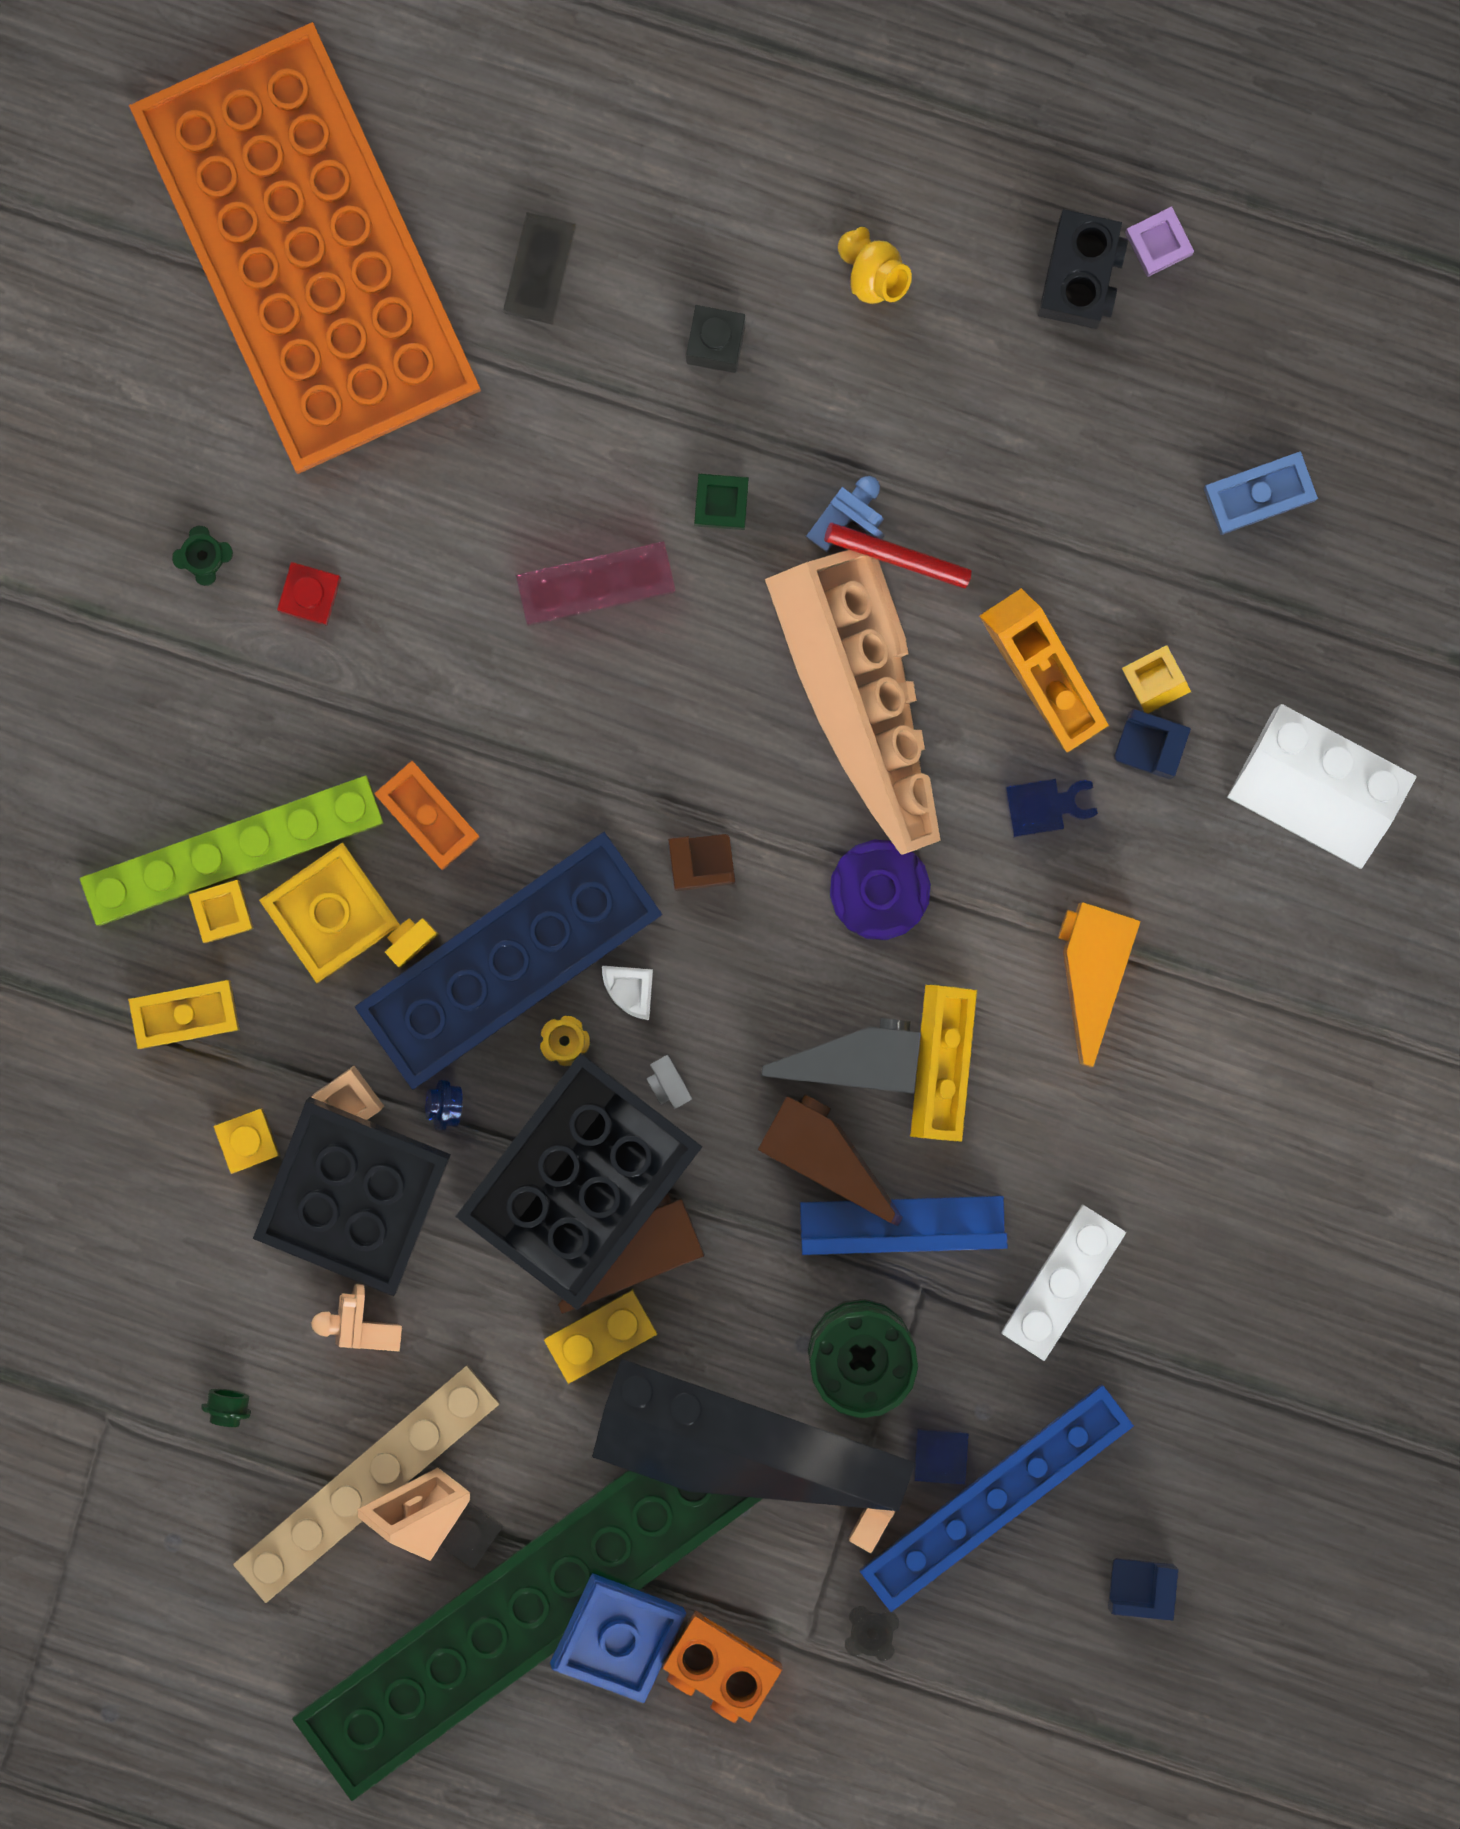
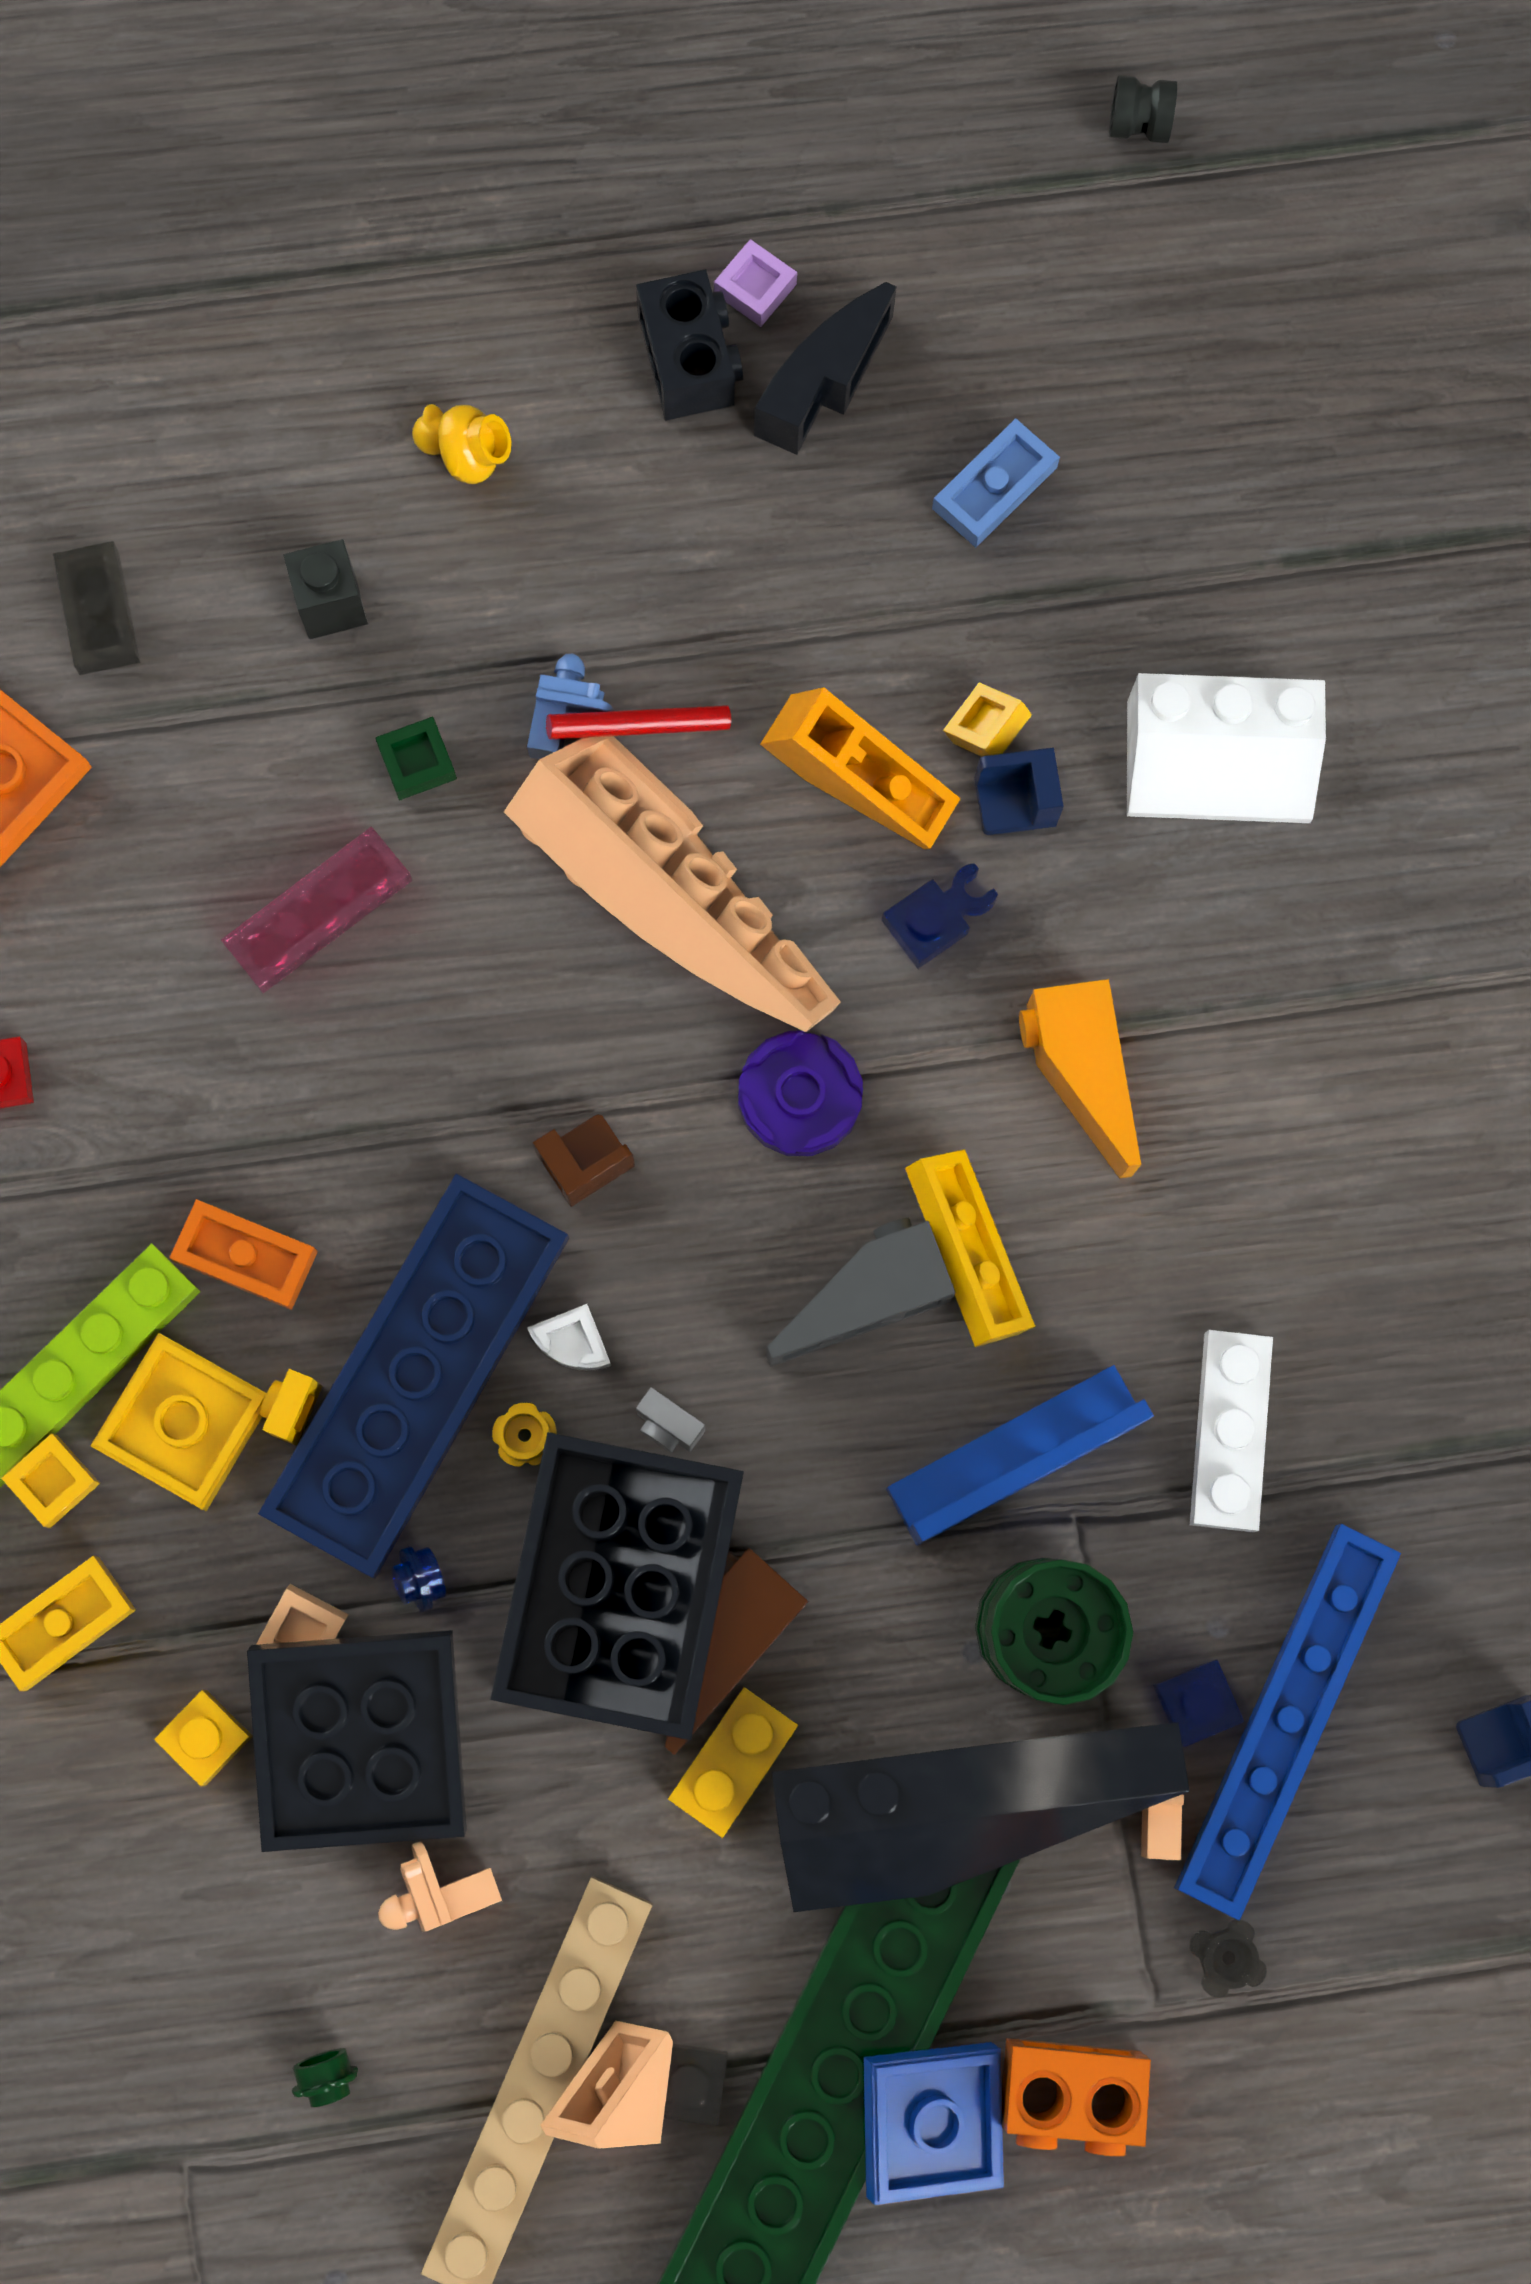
camera: 30 degrees left, 10 degrees down
(822, 1151) = (877, 1414): reddish brown slope -> none
(1175, 340) = (824, 369): none -> black slope

